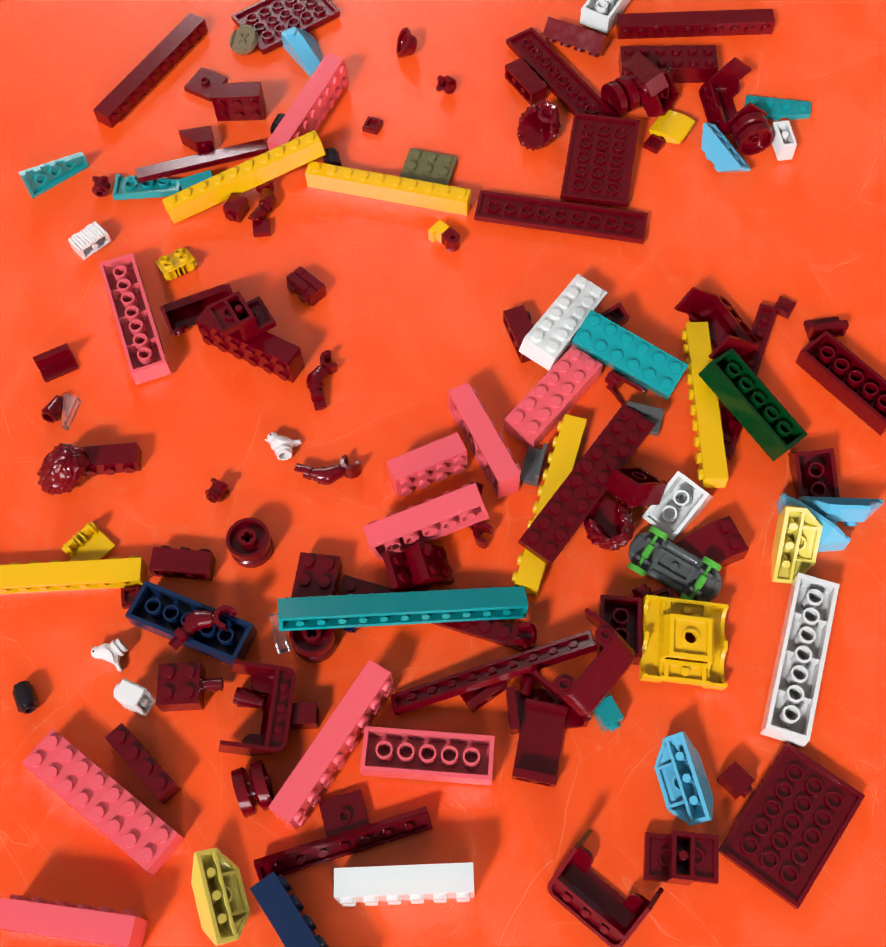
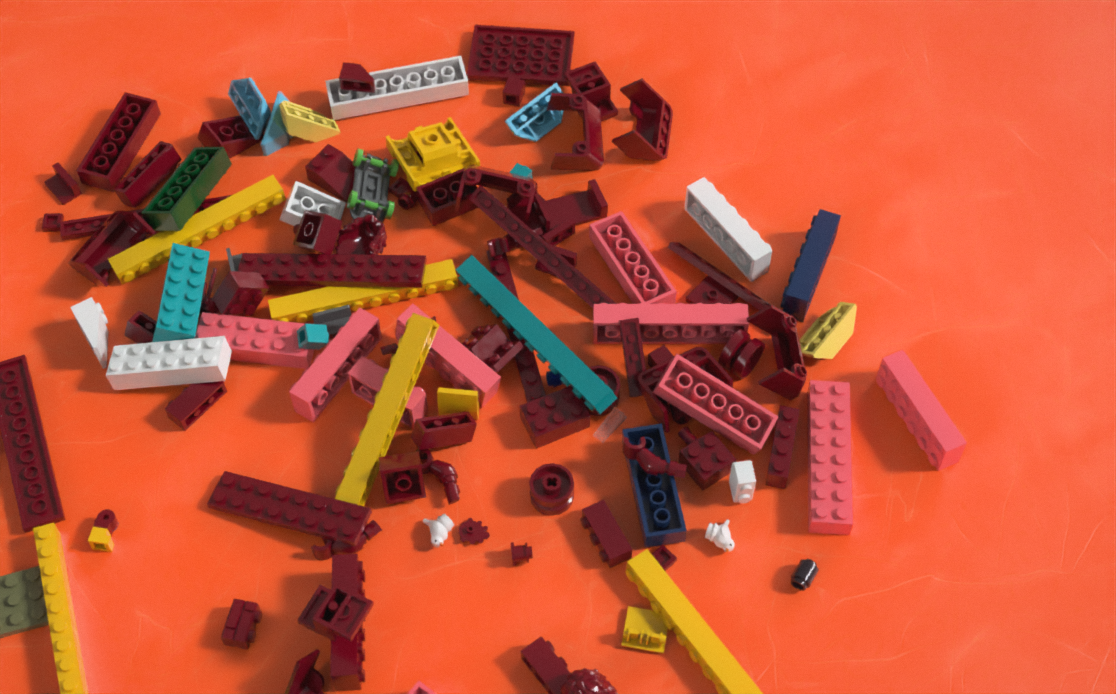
camera: 125 degrees left, 5 degrees down
(213, 718) = (715, 404): none -> coral brick
(214, 828) = (791, 370): none -> dark red windscreen
(263, 471) = (473, 531): none -> dark red piece
(323, 683) = (632, 353): none -> dark red tile
(339, 434) = (402, 477): none -> dark red brick
(358, 484) = (443, 430): none -> dark red brick
(373, 352) = (290, 508): none -> dark red plate
(380, 508) = (458, 401): none -> yellow slope
(399, 444) = (387, 410): none -> yellow brick
(516, 427) = (312, 336): none -> teal brick
(602, 397) = (240, 293): none -> dark red brick
(633, 285) = (93, 325): none -> white slope
(642, 831) = (586, 153): none -> dark red windscreen
(797, 389) = (147, 174): none -> dark red brick
(822, 608) = (356, 78): none -> dark red slope

